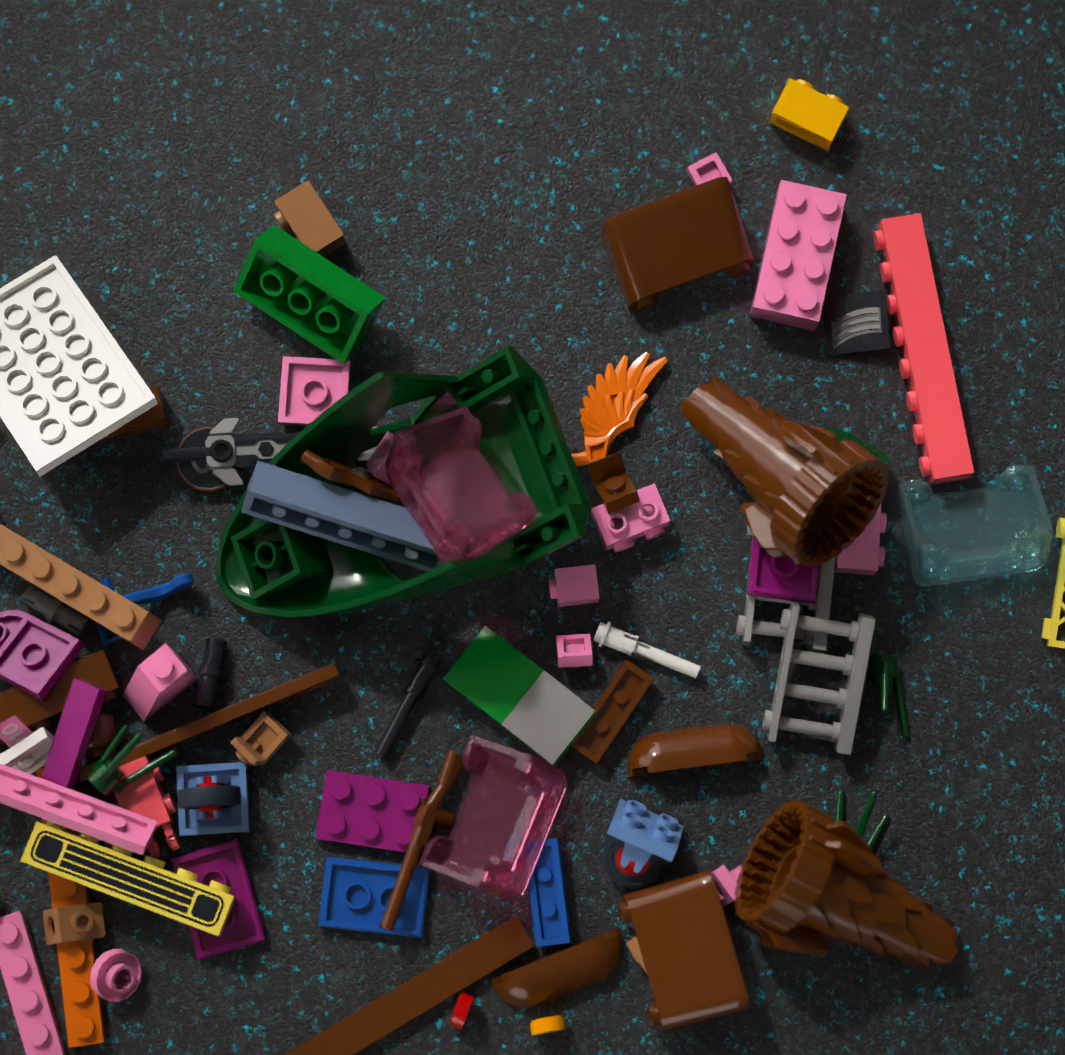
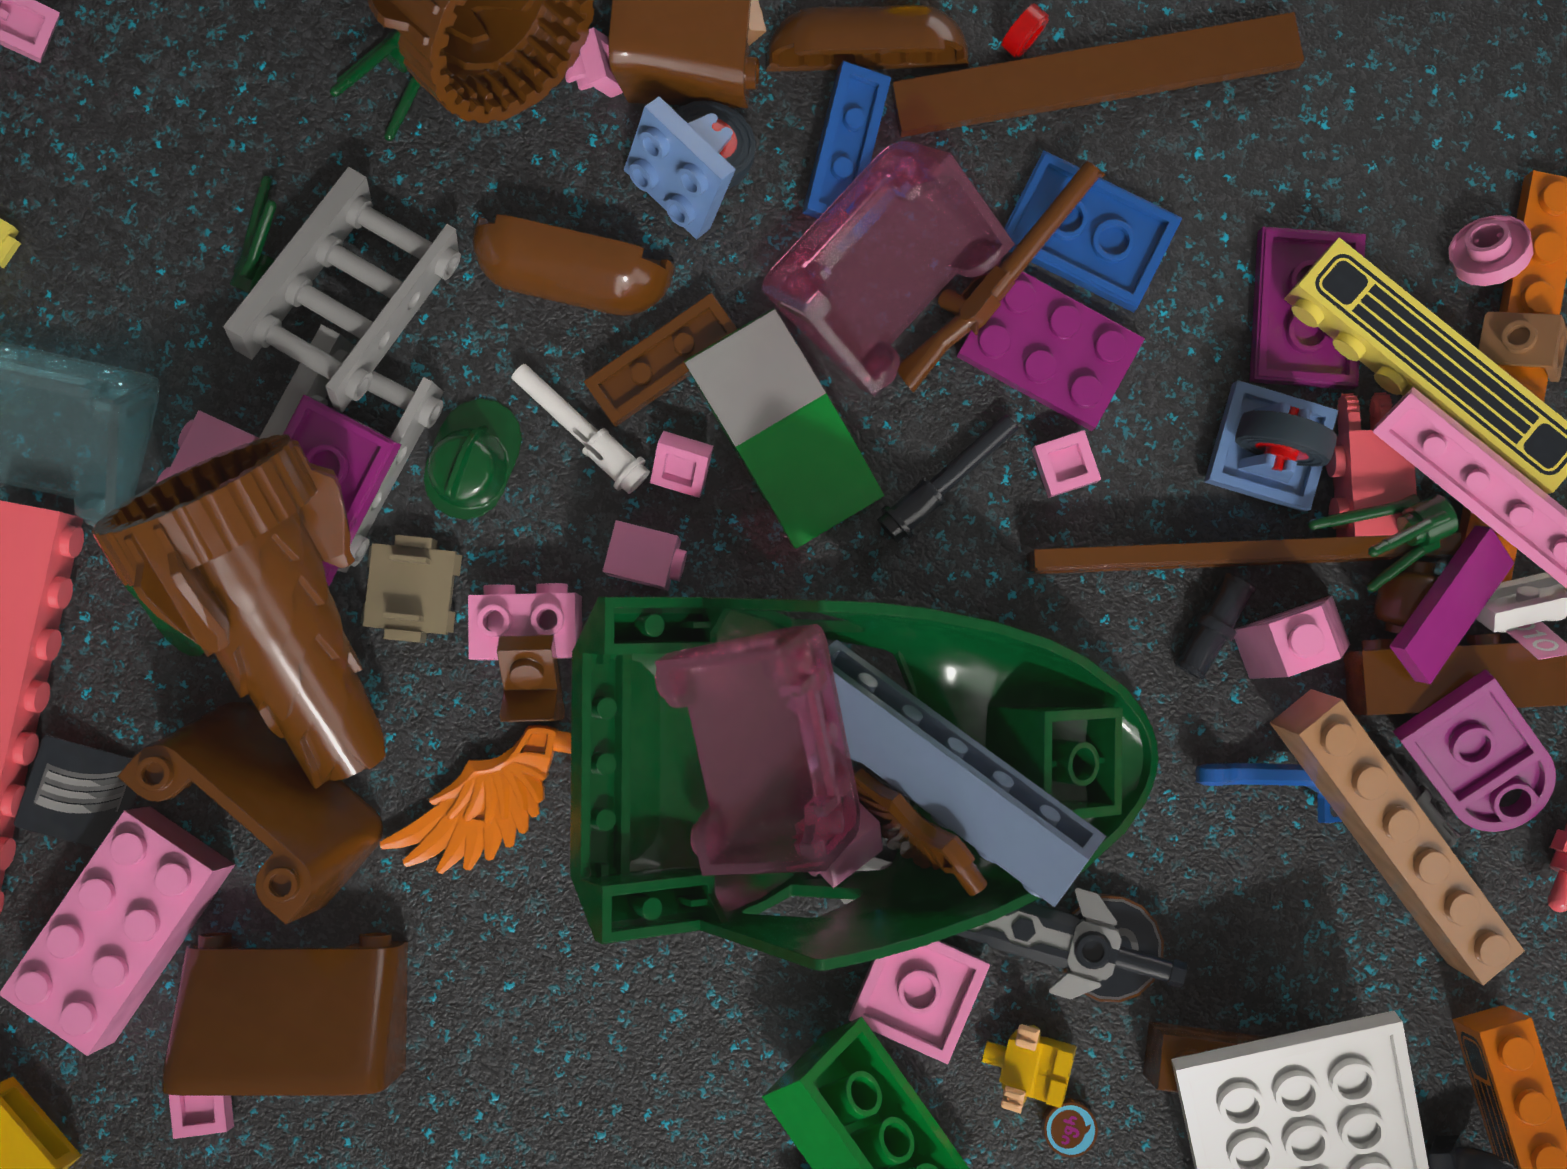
camera: 155 degrees left, 5 degrees up
(197, 347) = (1069, 1129): none -> reddish brown tile
(231, 372) = (1031, 1067): none -> yellow piece
(261, 740) = (1177, 501): medium nougat bracket -> none
(336, 740) = (1066, 464): none -> bright pink plate
(705, 609) = (472, 459): none -> dark green piece
(710, 514) = (410, 589): none -> dark tan piece
(749, 368) = (253, 775): none -> reddish brown windscreen

